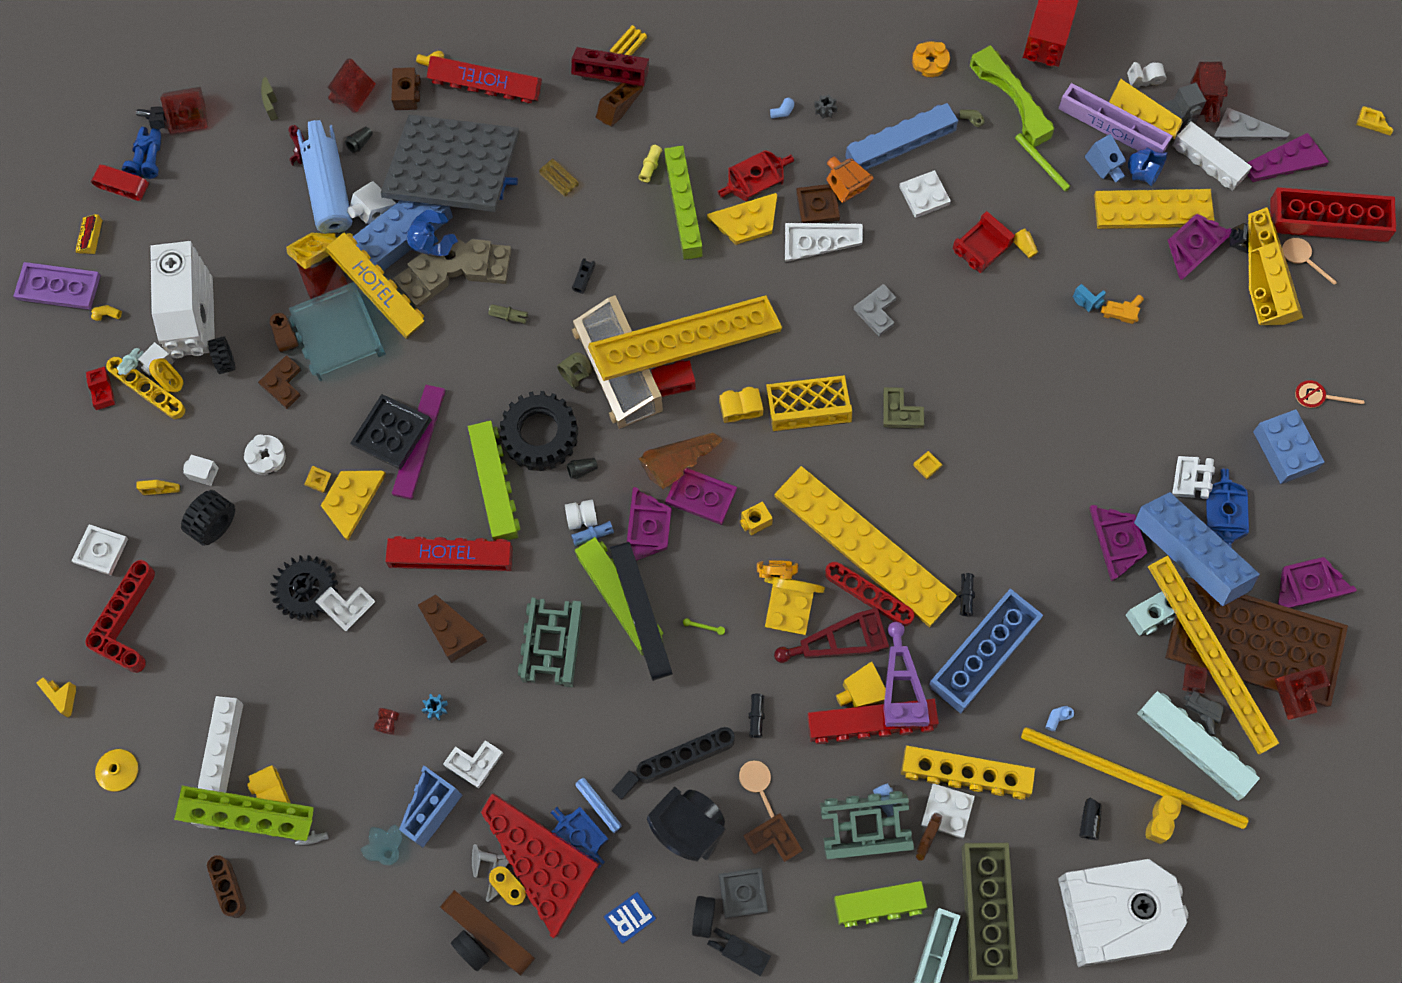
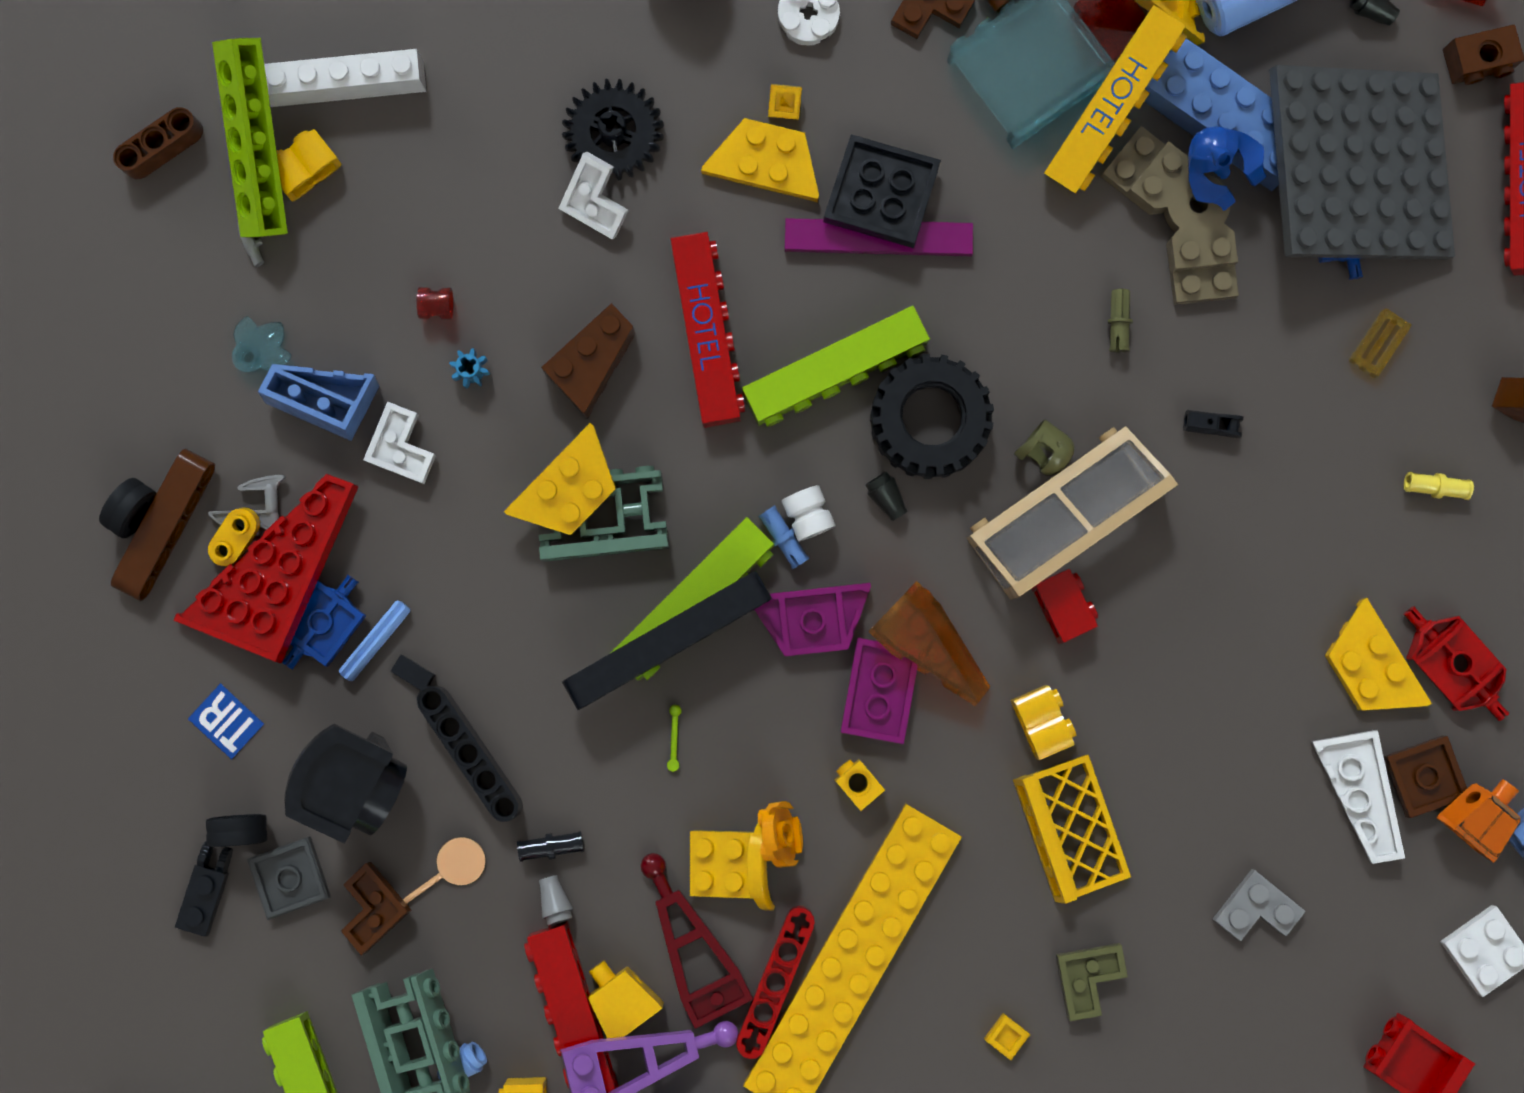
camera: 75 degrees right, 15 degrees up
(368, 203) = (1257, 50): white torso -> none
(528, 653) = (567, 487): none -> yellow wing
(683, 202) = (1379, 555): lime brick -> none
(684, 337) = (1129, 611): yellow plate -> none
(792, 720) = (554, 901): none -> light grey cone

